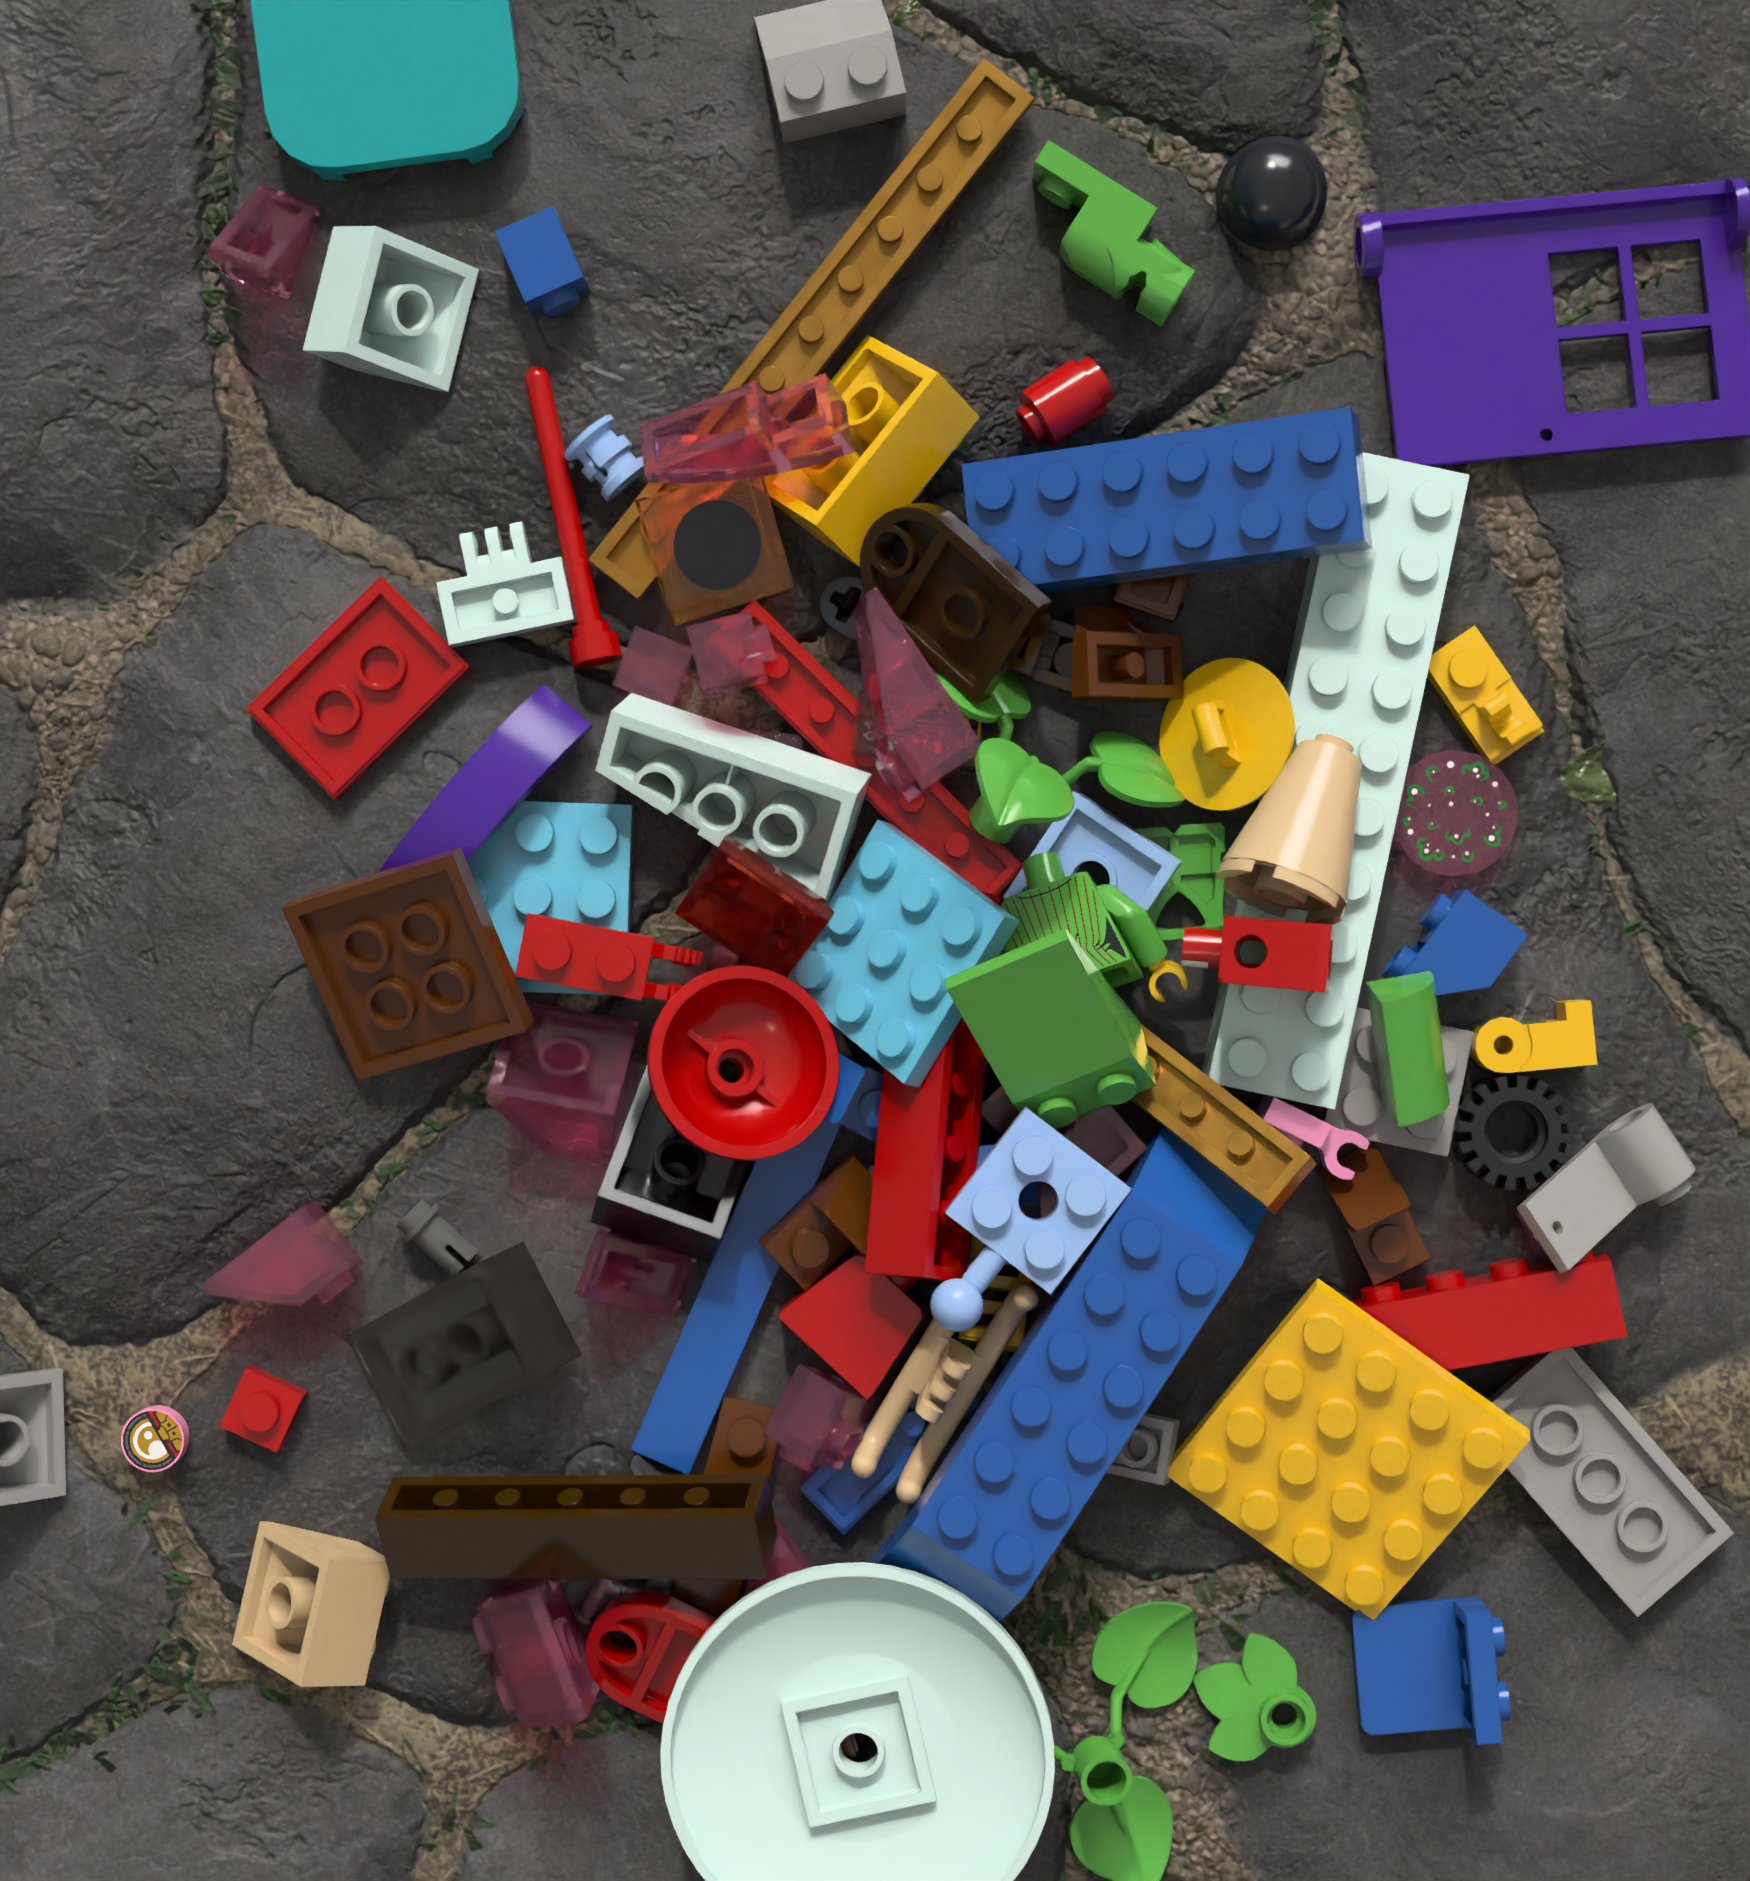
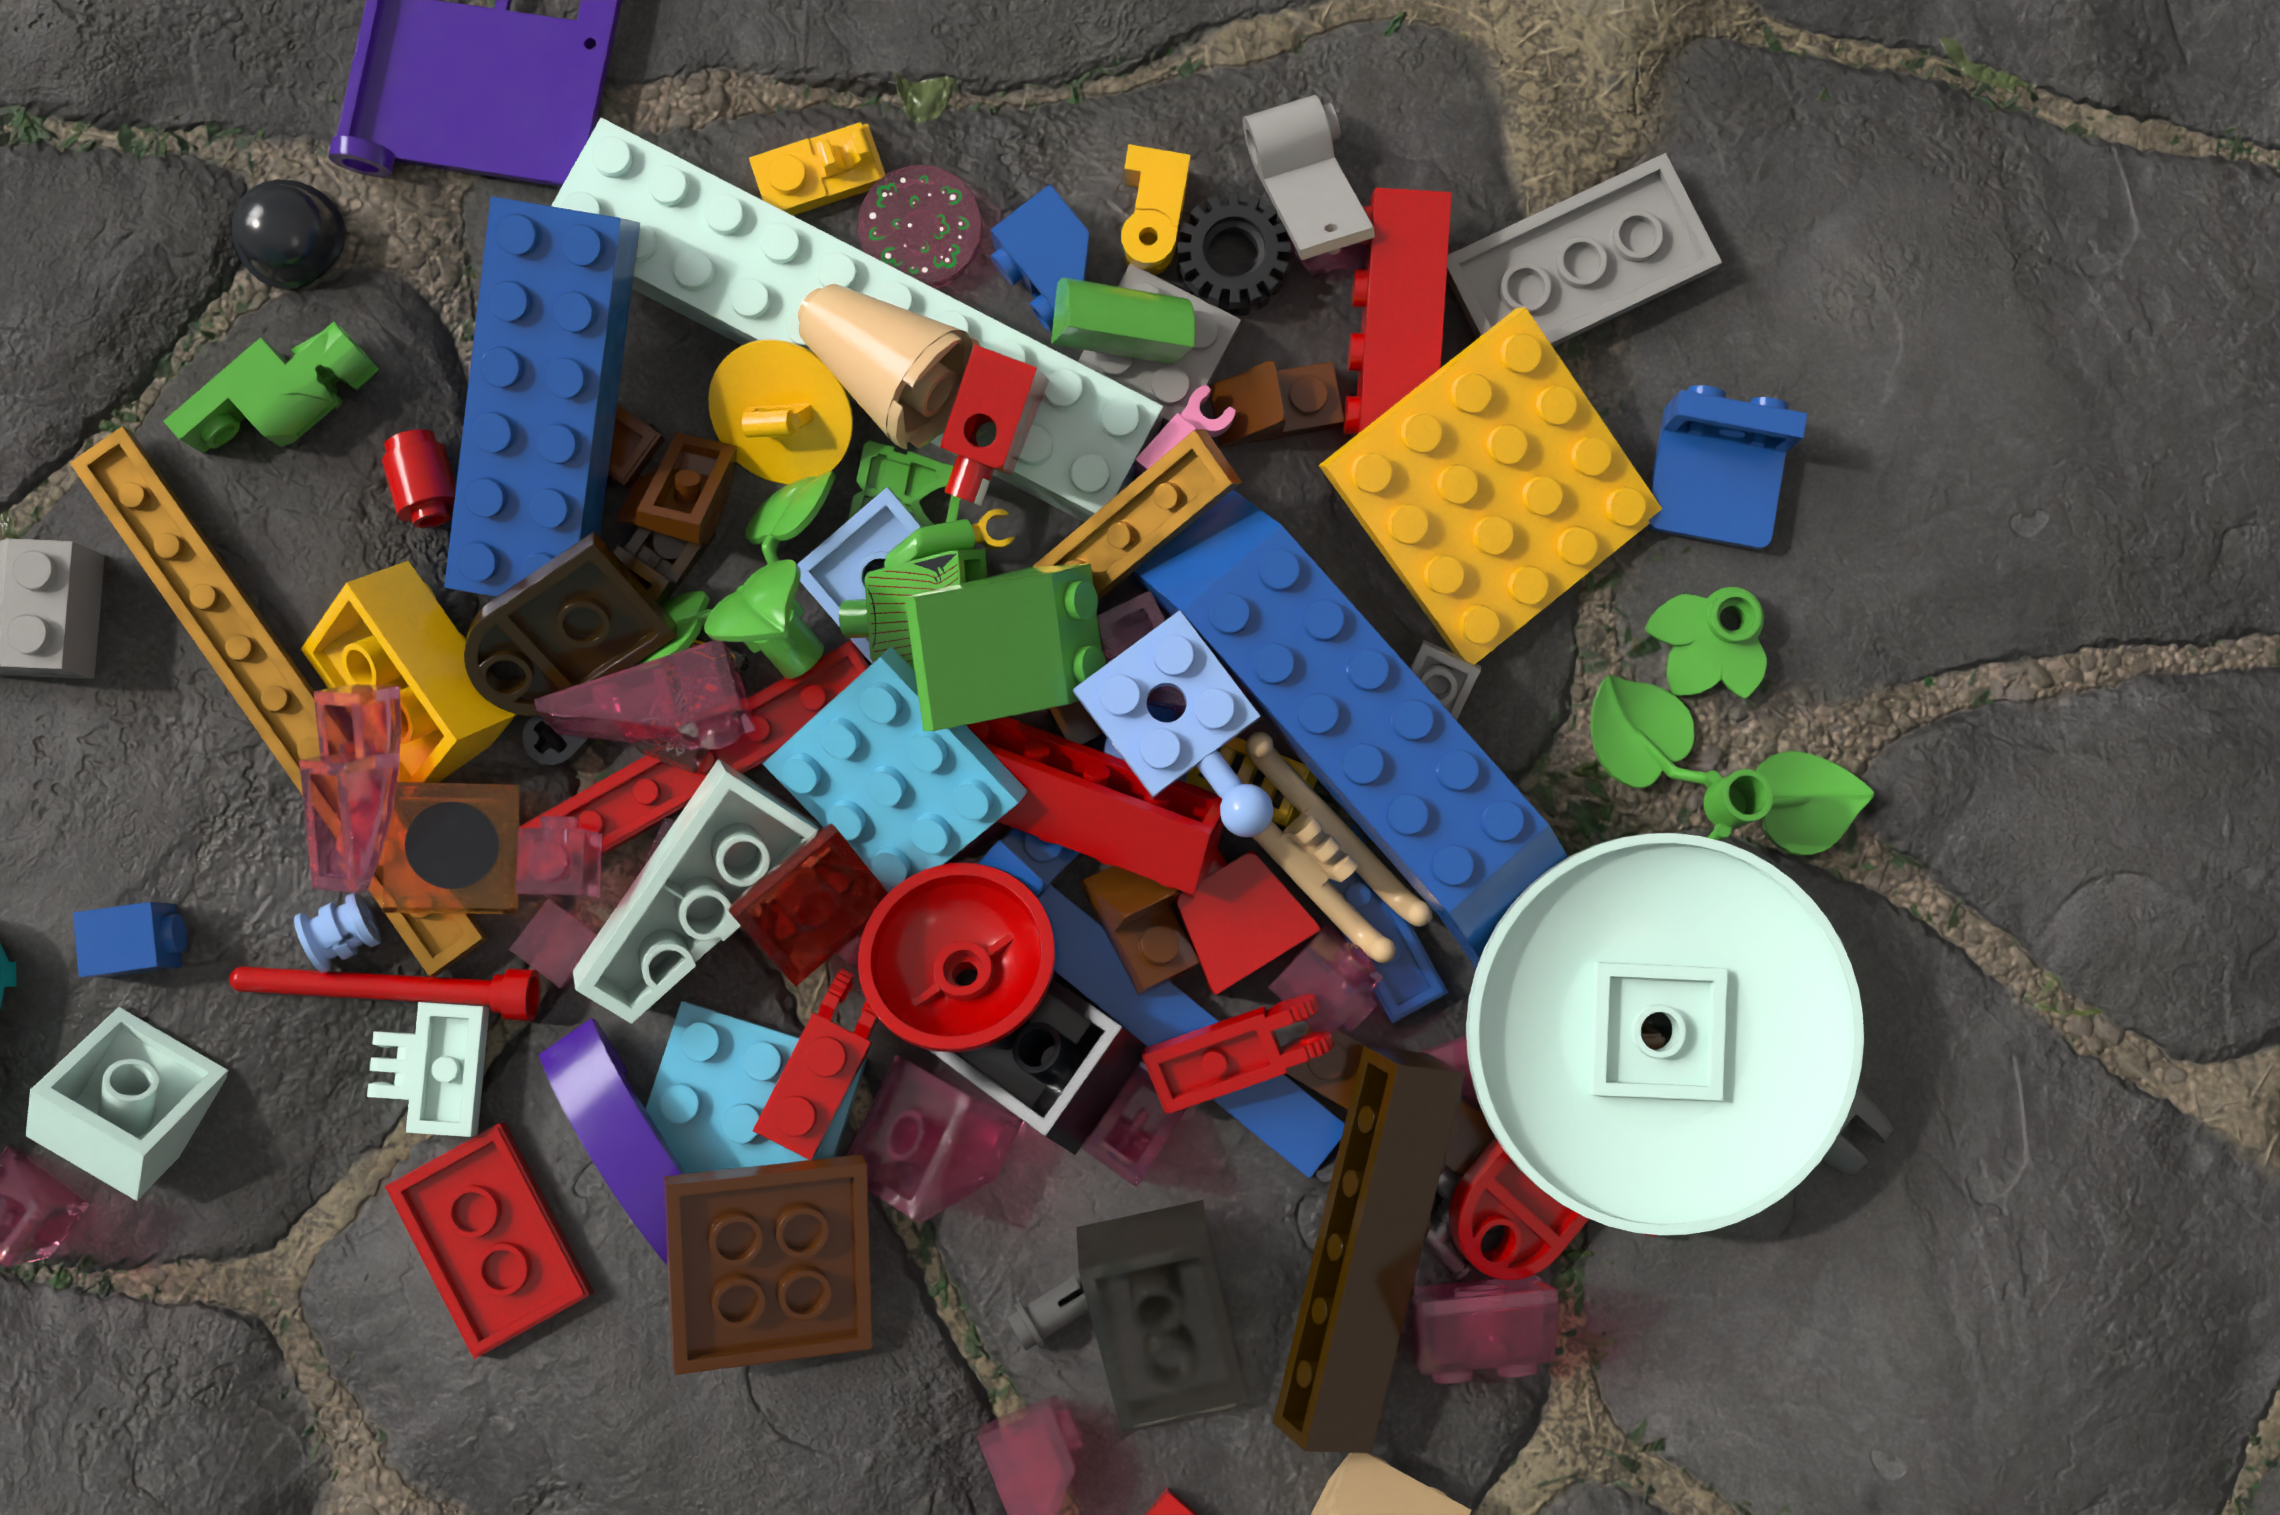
camera: 75 degrees left, 5 degrees down
(726, 1349) = (1232, 1054): none -> red hinge

